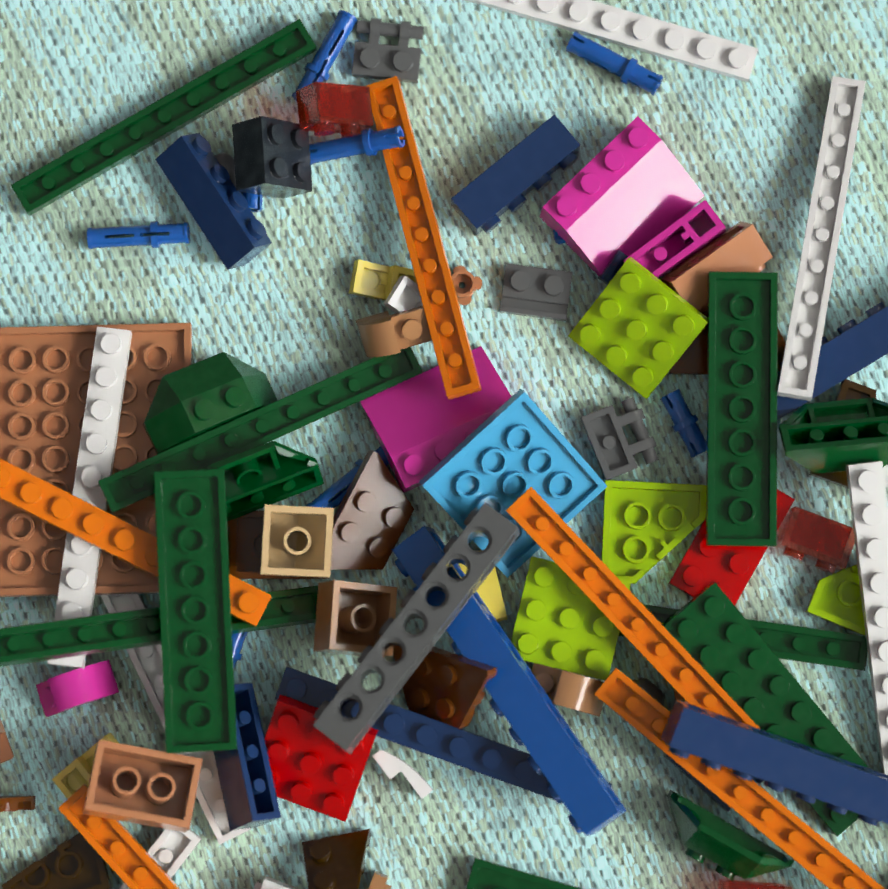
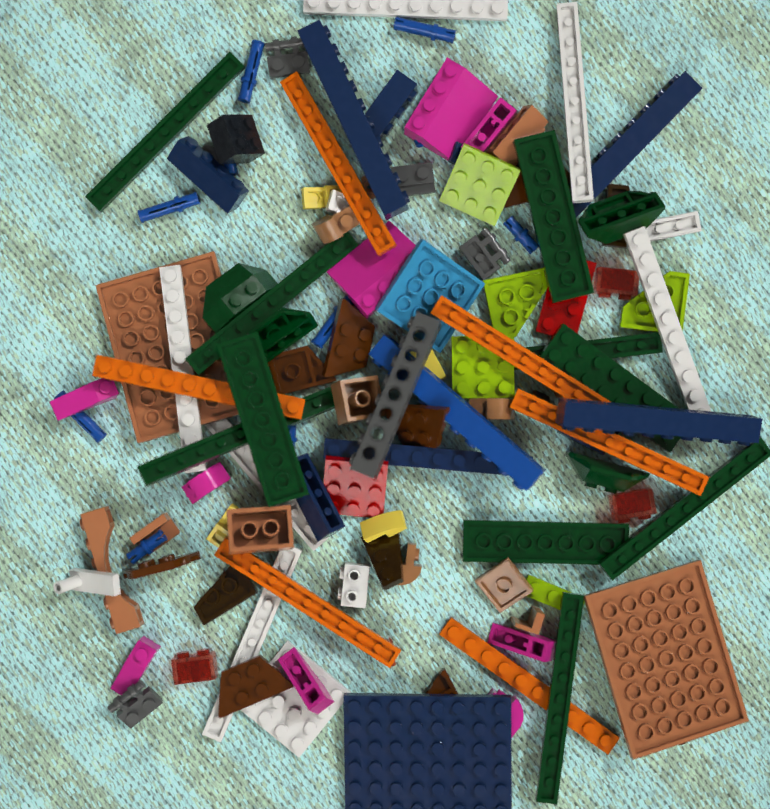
camera: 10 degrees left, 5 degrees up
(297, 541) = (311, 363): tan slope -> none
(334, 109) = (265, 100): clear red brick -> none
(347, 830) = (386, 523): none -> light yellow slope
(367, 142) = (291, 115): blue pin -> none
(393, 765) = (402, 479): white slope -> none
(464, 176) = (353, 120): none -> dark blue brick

